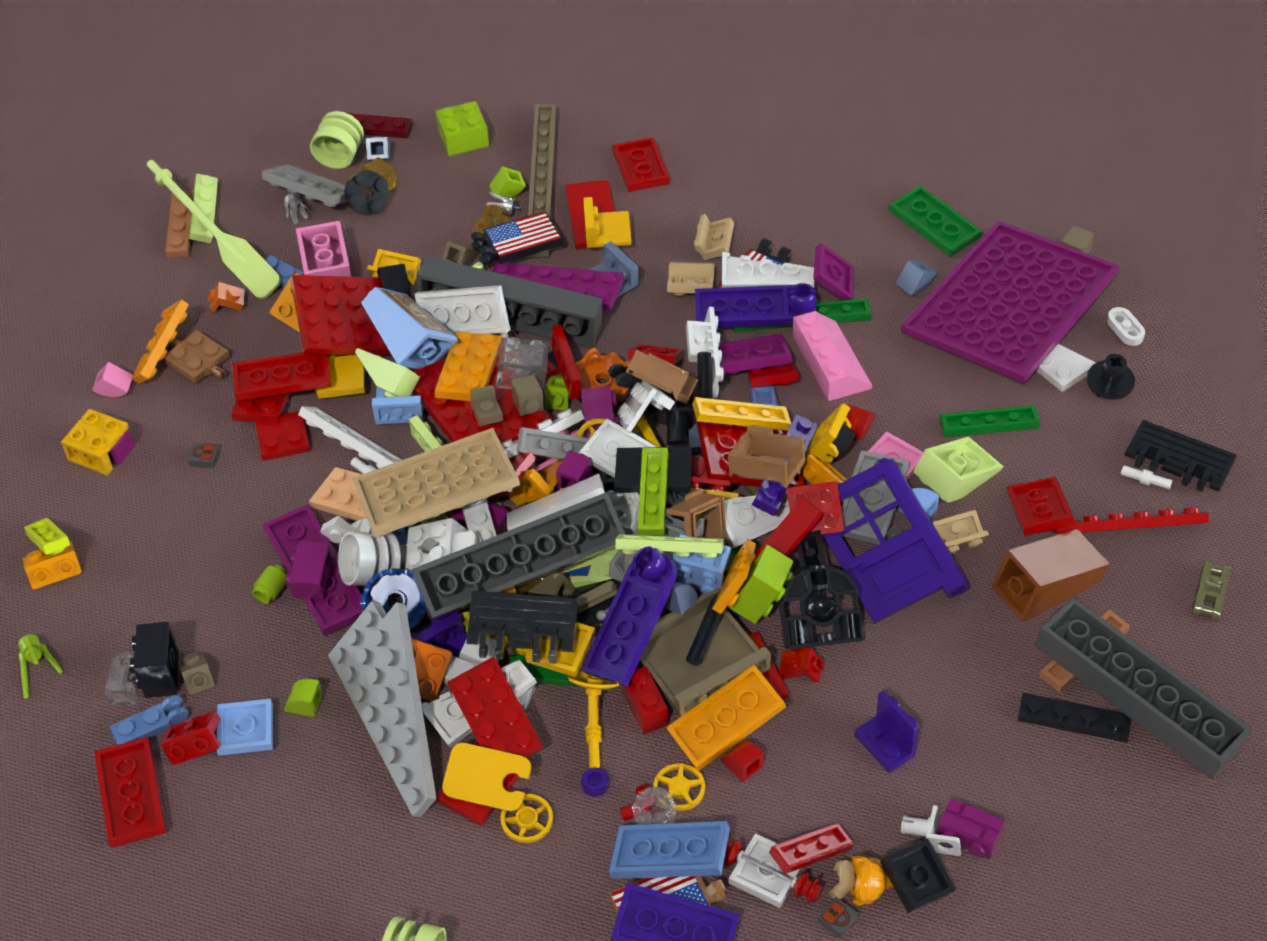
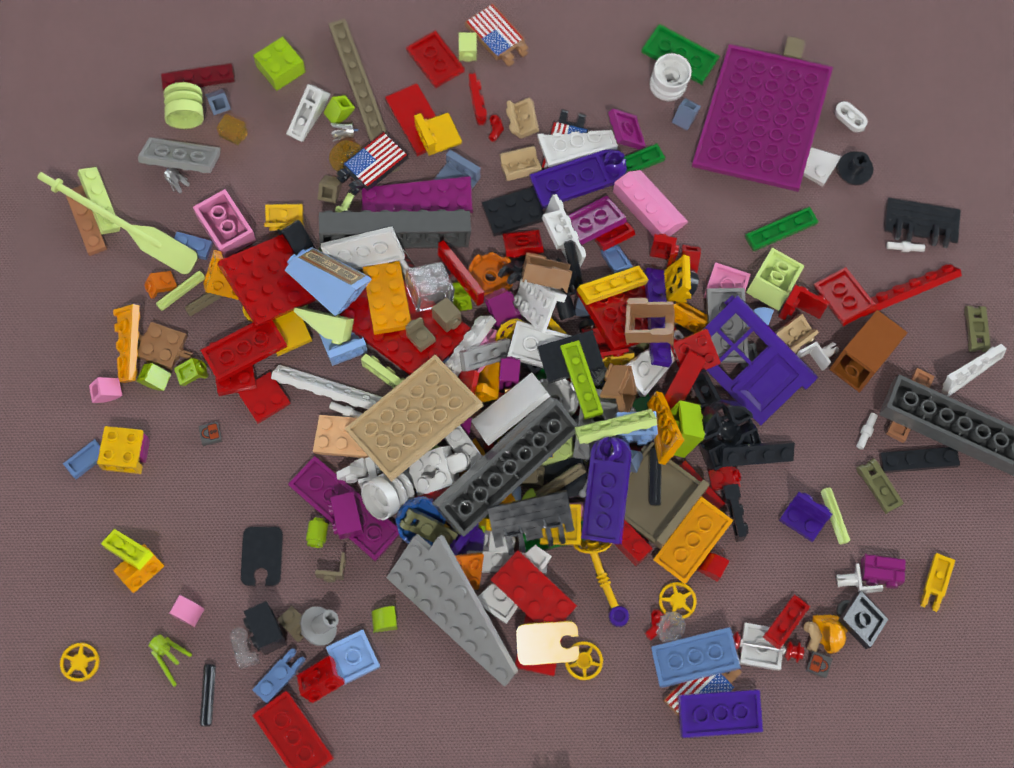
camera: 25 degrees left, 20 degrees up
(48, 444) = (83, 460): none -> medium blue tile
(56, 718) = (207, 695): none -> black axle
(79, 621) = (186, 611): none -> bright pink brick
(171, 383) = (153, 377): none -> lime brick
(198, 587) = (263, 550): none -> black piece
(213, 386) = (190, 371): none -> lime bracket
(221, 678) = (319, 625): none -> light grey piece
(243, 311) = (180, 290): none -> yellowish green axle
(263, 327) = (201, 303): none -> dark tan axle
(266, 633) = (332, 576): none -> dark tan bracket
(355, 197) = (240, 153): black plate -> none
(416, 617) = (427, 526): none -> olive plate
(471, 178) = (308, 112): none -> white slope
(659, 325) = (513, 211): none -> black plate
(669, 208) = (477, 99): none -> red plate
(681, 241) = (497, 128): none -> red arm
(682, 158) = (467, 47): none -> yellowish green brick
(722, 156) = (497, 34): none -> tile
(799, 692) = (731, 496): none -> black plate
(824, 395) = (664, 248): none -> red bracket
(851, 644) = (756, 453): none -> black plate
(908, 233) = (672, 69): none -> white wheel
(931, 749) = (836, 518): none -> yellowish green axle
(978, 491) = (804, 300): none -> red bracket
(982, 562) = (819, 354): none -> white bracket
(1007, 732) = (880, 486): none -> olive plate
(1014, 664) = (867, 431): none -> white bar
(1044, 864) = (937, 580): none -> yellow hinge
(1178, 630) = (971, 370): none -> white wing

